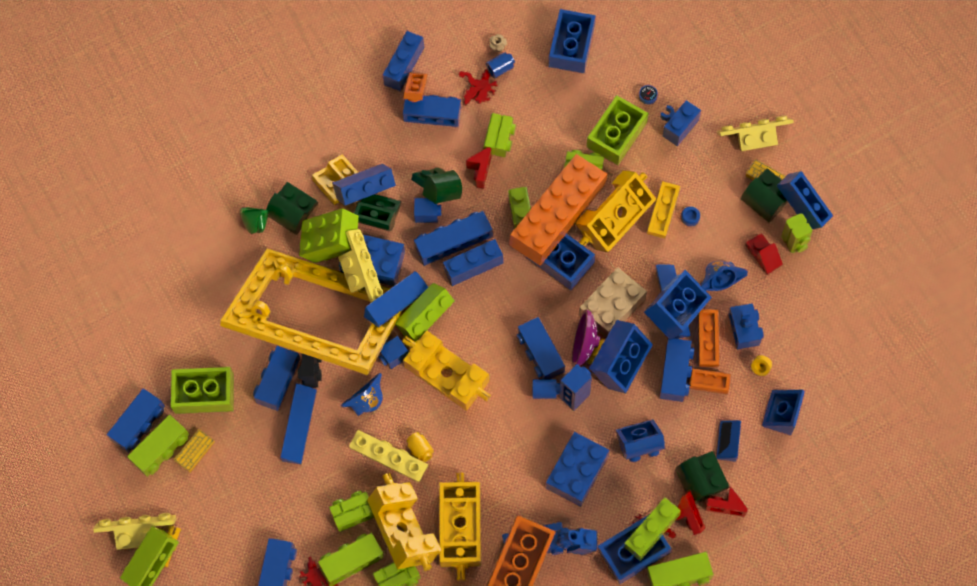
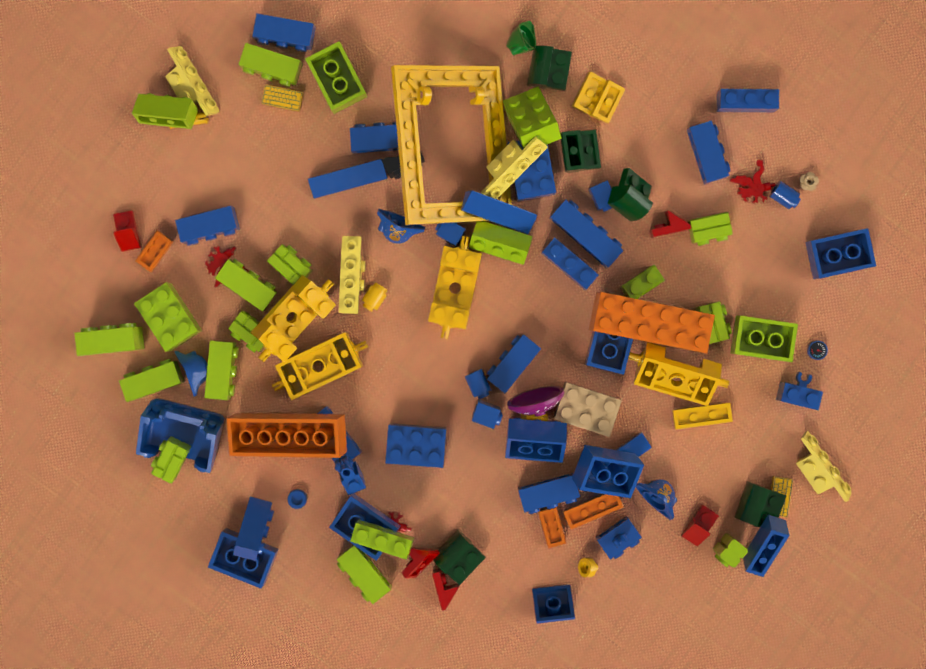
camera: 65 degrees right, 20 degrees up
(364, 184) = (600, 126): blue brick -> none
(415, 86) = (722, 126): orange plate -> none
(640, 440) = (468, 489): blue brick -> none
(690, 216) = (707, 442): blue tile -> none
(728, 440) = (504, 566): blue slope -> none

